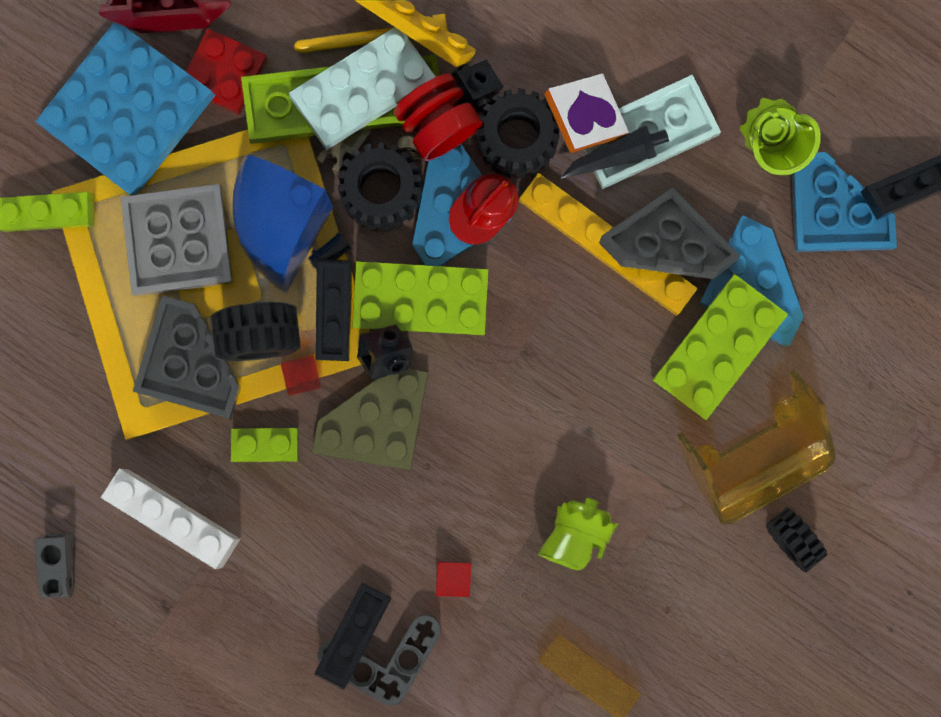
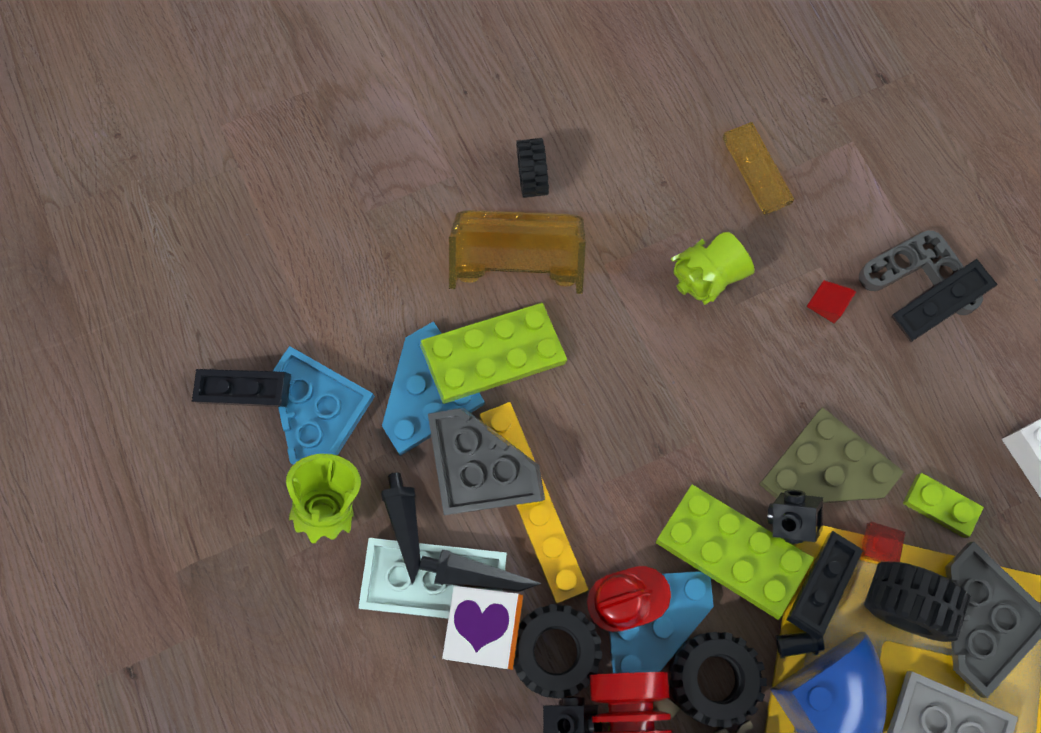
camera: 150 degrees left, 10 degrees down
(707, 168) = (403, 517): none -> black bar

